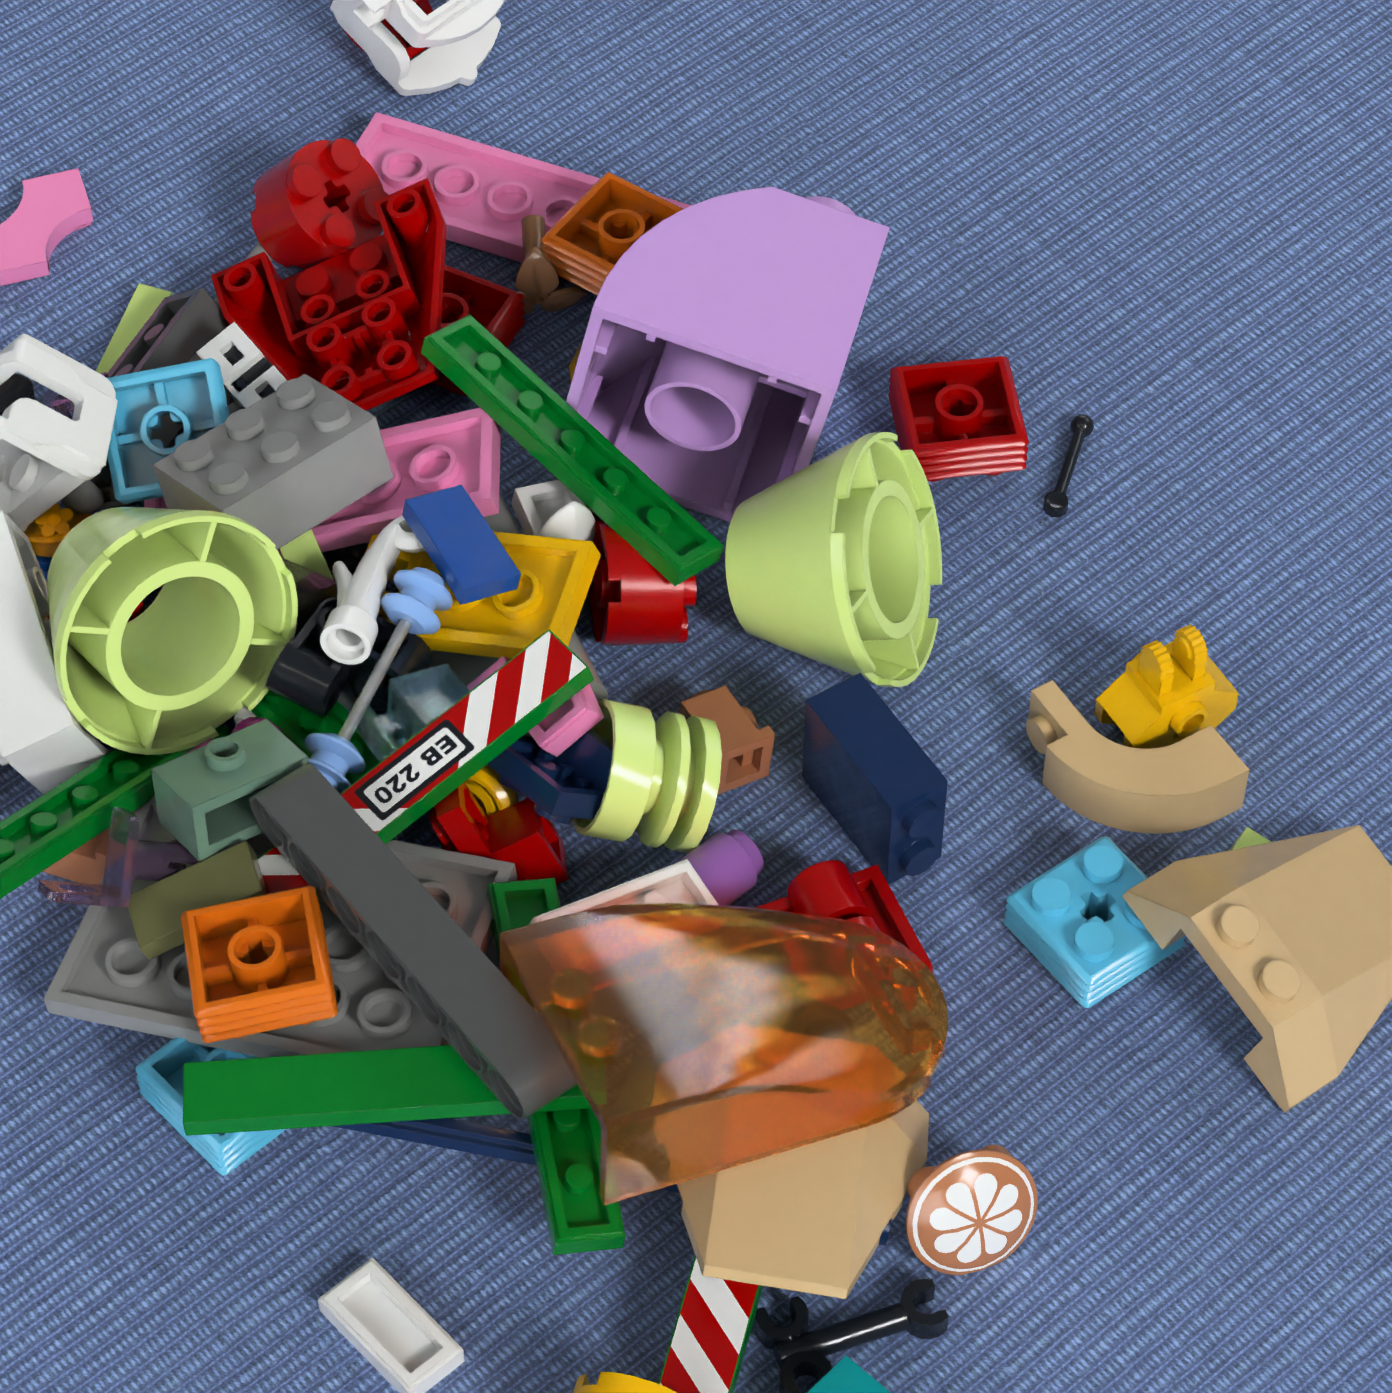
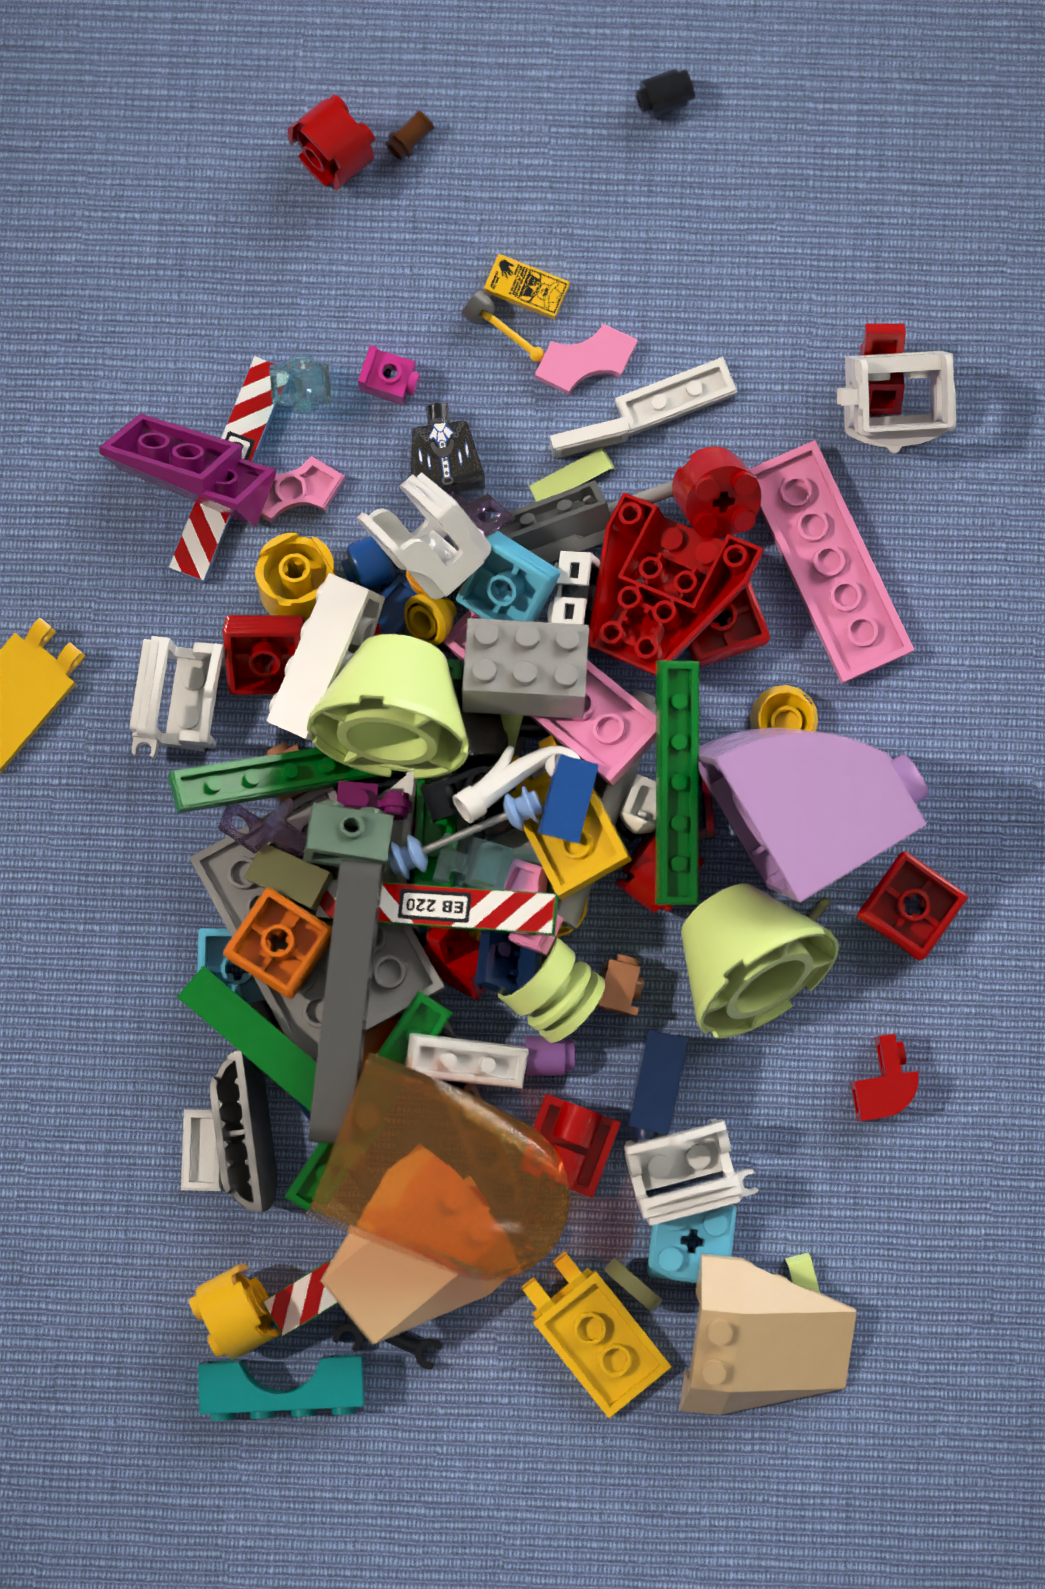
camera: 45 degrees right, 30 degrees up
(114, 280) = (589, 438): none -> white tile
(176, 193) = (676, 396): none -> white tile
(420, 1248) = (244, 1133): none -> dark grey brick
(537, 274) = (788, 632): medium nougat plant -> none
(601, 229) = (857, 632): orange brick -> none
(970, 1210) = (483, 1336): dish -> none
(993, 872) = (679, 1159): none -> white animal
(1057, 501) = (918, 991): black hinge -> none
(1083, 1006) = (633, 1285): none -> olive piece
(1097, 1112) = (596, 1336): none -> yellow tile
(1127, 594) = (890, 1092): none -> red brick
(1129, 786) = (776, 1187): tan arch -> none
(1167, 693) = (841, 1161): yellow hinge -> none

